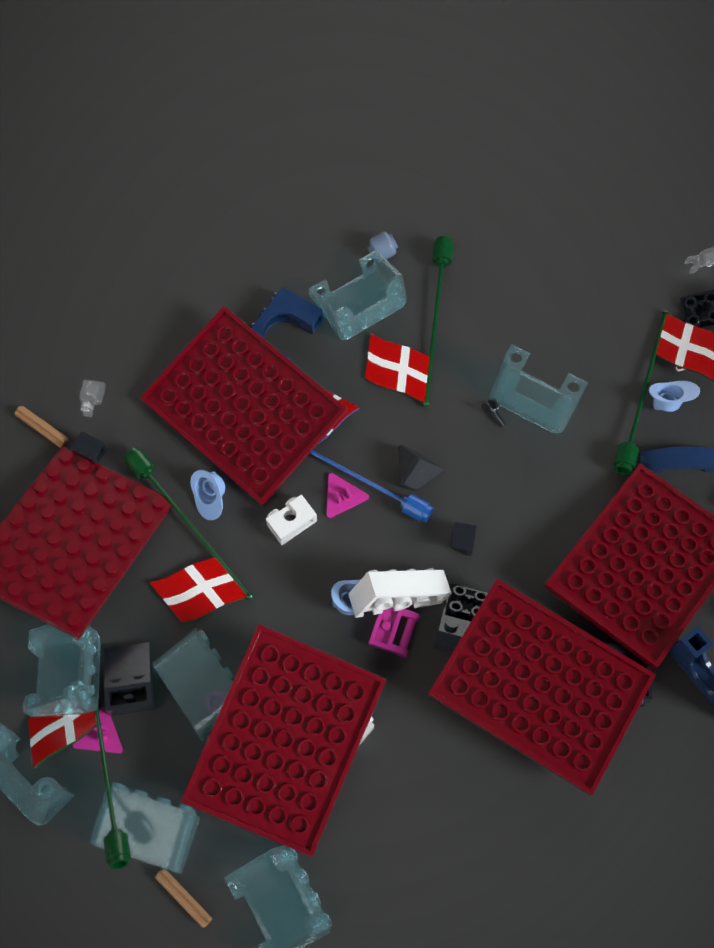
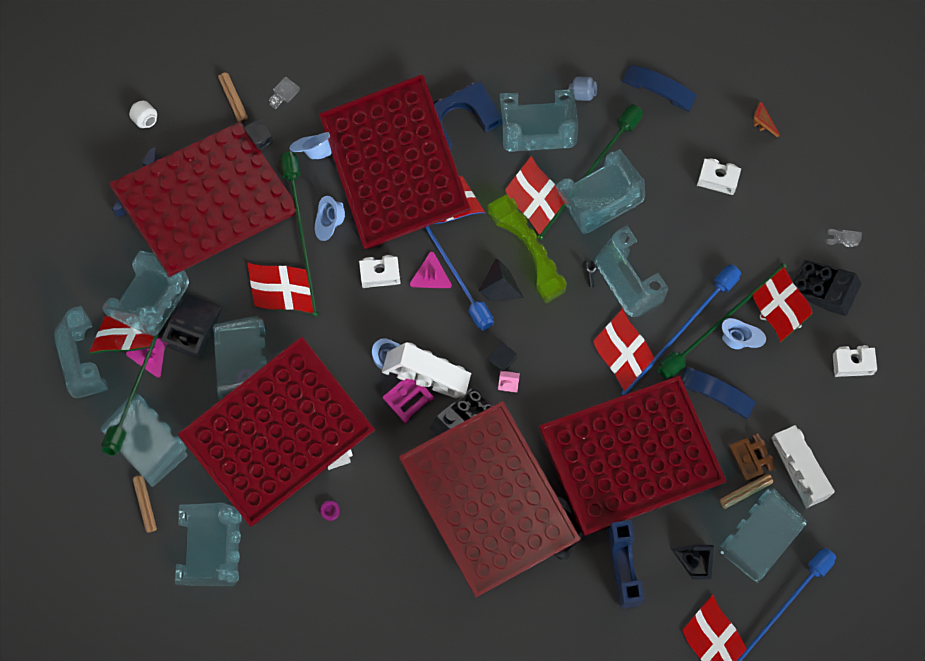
camera: 30 degrees right, 5 degrees up
(152, 432) = (314, 146): none -> light blue piece
(383, 400) = (506, 216): none -> clear neon green arch
(383, 790) = (330, 510): none -> magenta tile
(451, 207) = (660, 85): none -> dark blue slope
(462, 329) = (603, 193): none -> clear light blue windscreen
(483, 558) = (508, 381): none -> bright pink plate
(550, 269) = (722, 184): none -> white brick
(563, 194) = (763, 119): none -> dark orange piece
(575, 467) = (626, 349): none -> flag

